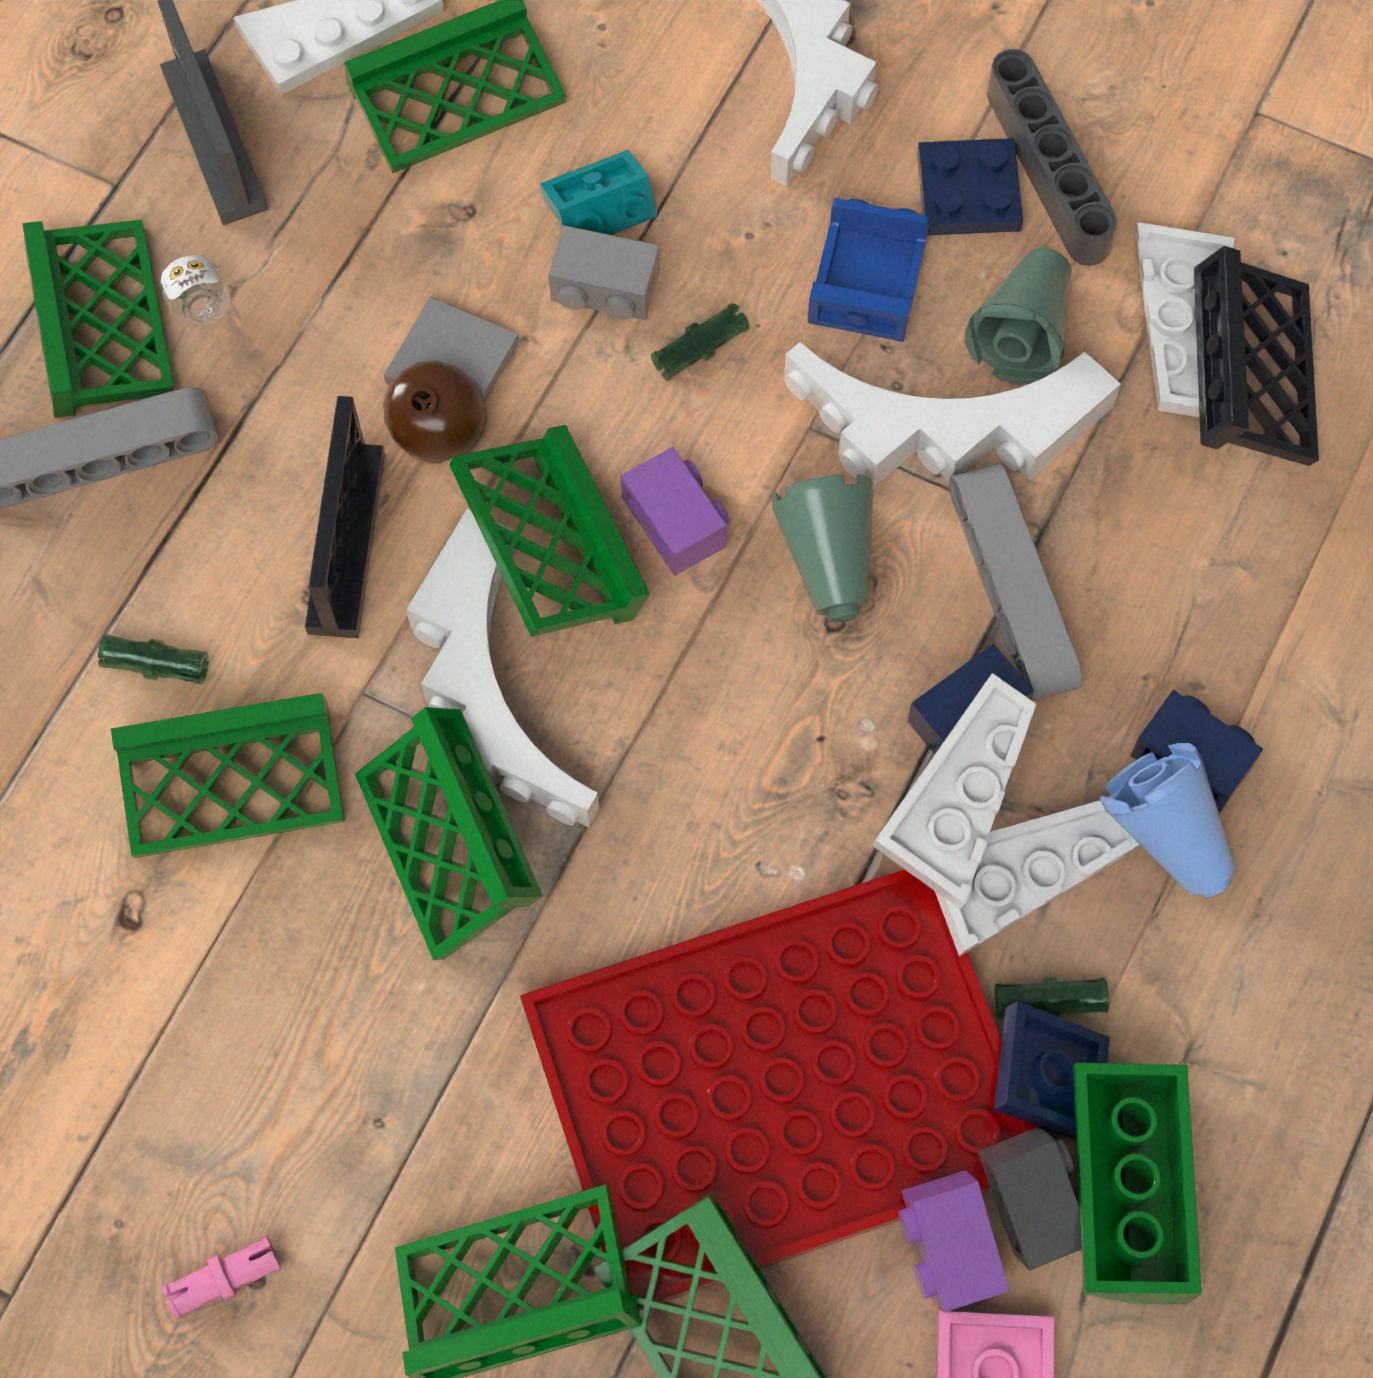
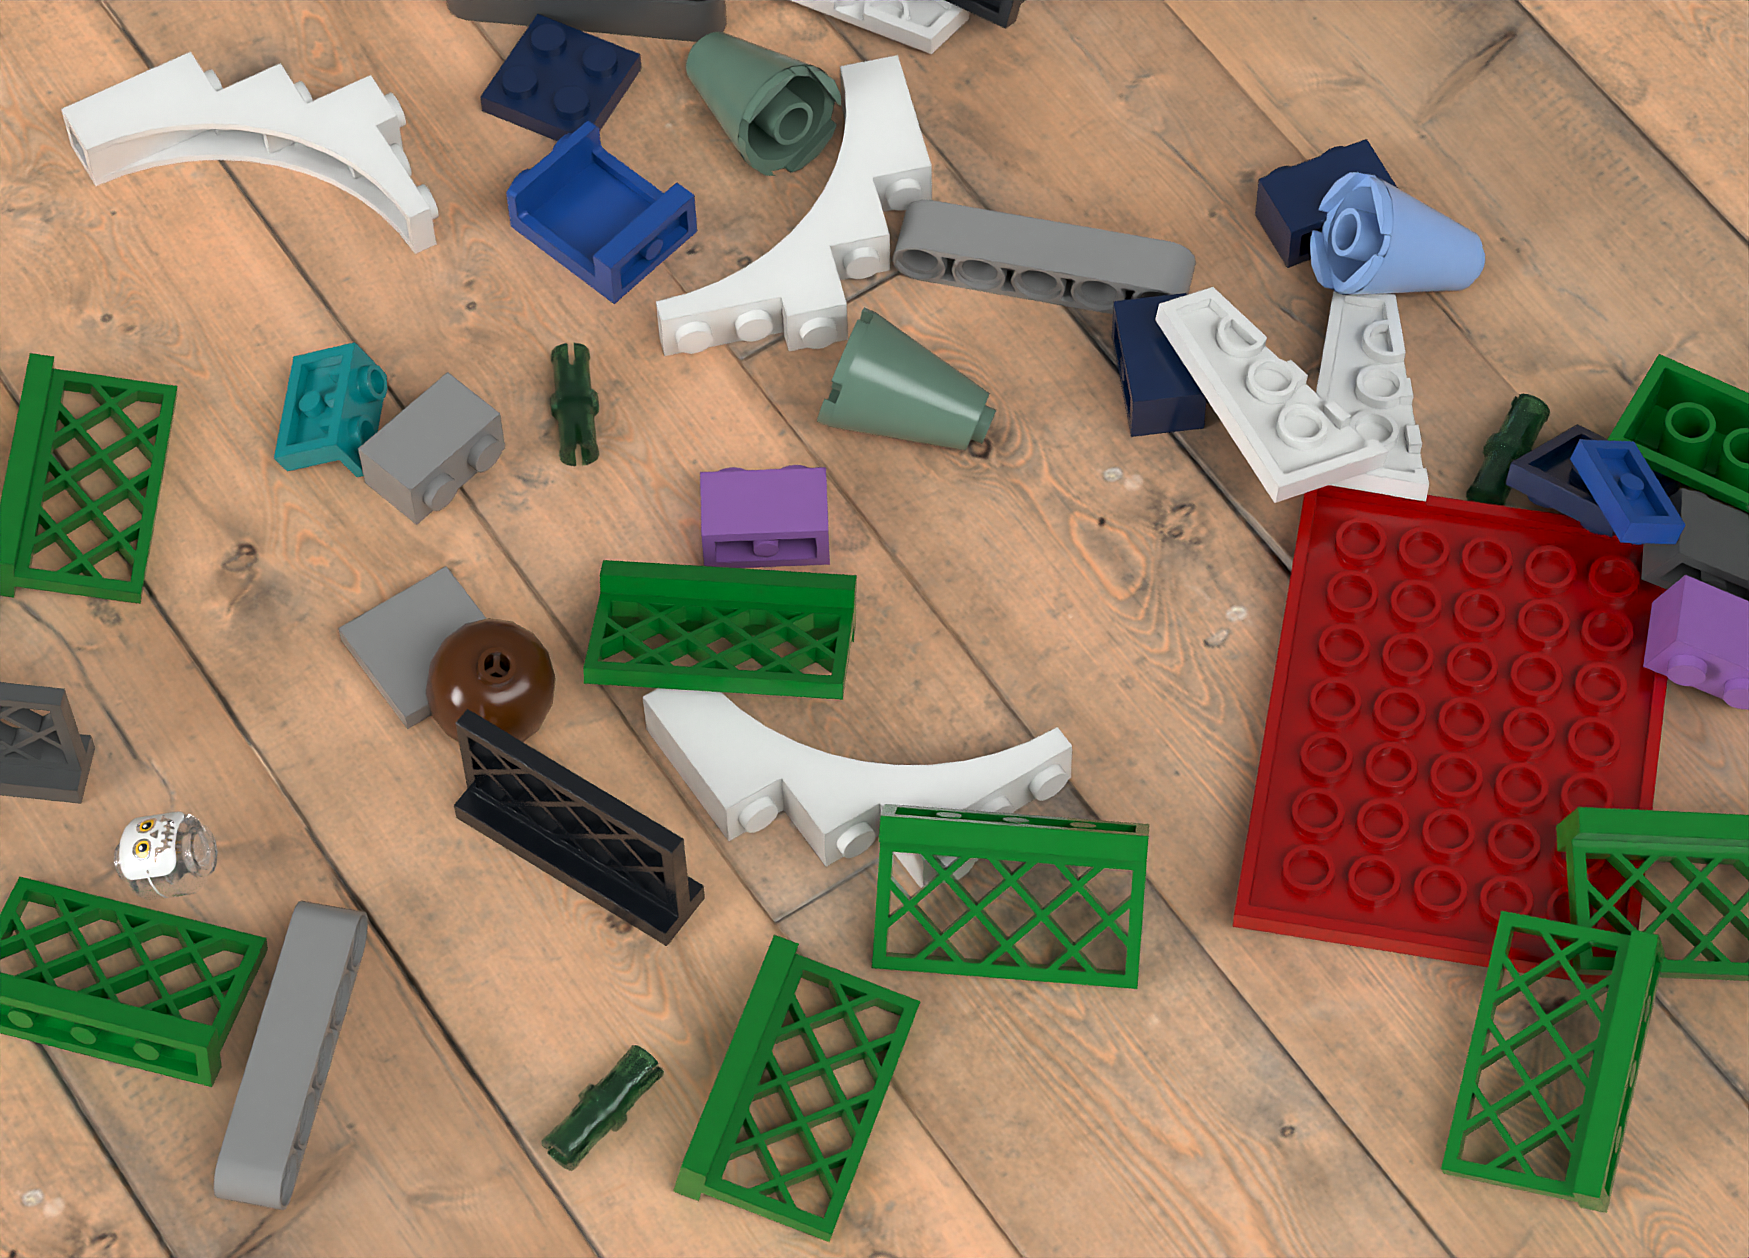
camera: 60 degrees left, 10 degrees down
(1023, 1100) = (1627, 492): none -> blue plate

